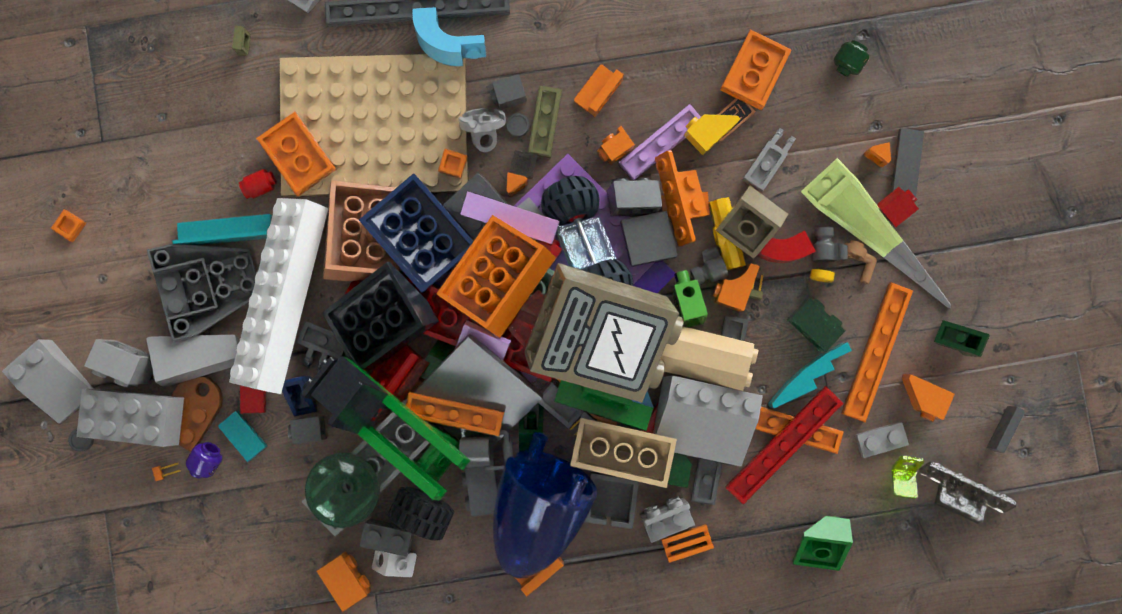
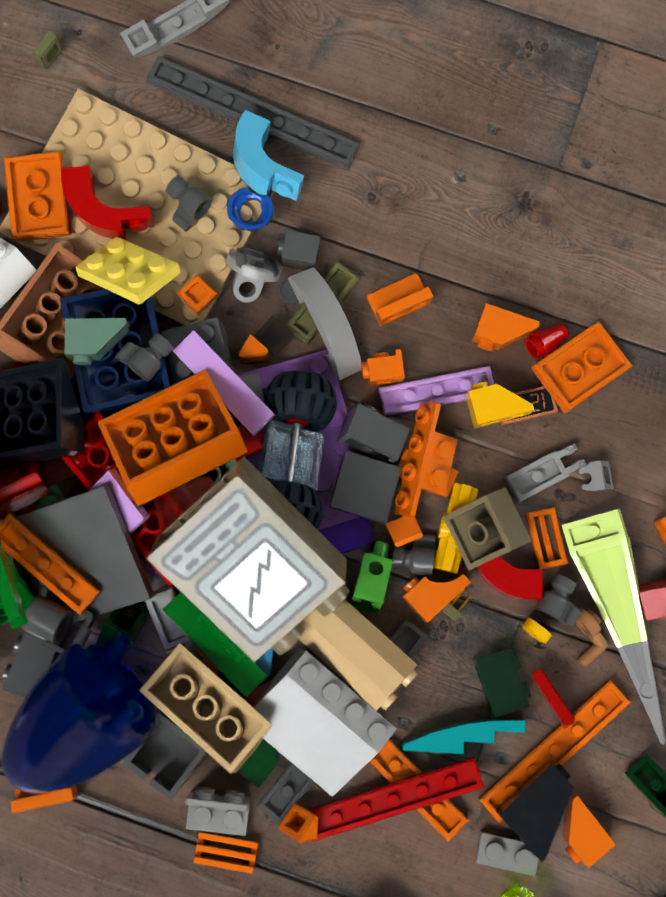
camera: 20 degrees right, 5 degrees down
(347, 145) = (109, 222): none -> red arch
(395, 172) = (128, 270): none -> light yellow plate
(399, 235) = (92, 337): none -> sand green slope
(412, 97) = (192, 202): none -> dark grey piece
(445, 75) = (240, 198): none -> blue piece
(446, 231) = (145, 360): none -> dark grey piece
(559, 132) = (329, 320): none -> light grey slope
(683, 71) = (501, 328): none -> orange slope
(692, 255) = (403, 530): none -> orange slope
(719, 65) = (544, 341): none -> red cone
(729, 496) = (300, 824): none -> orange slope
(800, 227) = (544, 532): none -> orange tile
(810, 141) = (600, 475): none -> light grey tile
(858, 316) = (553, 698): none -> red tile
(888, 397) = (538, 808): none -> black slope

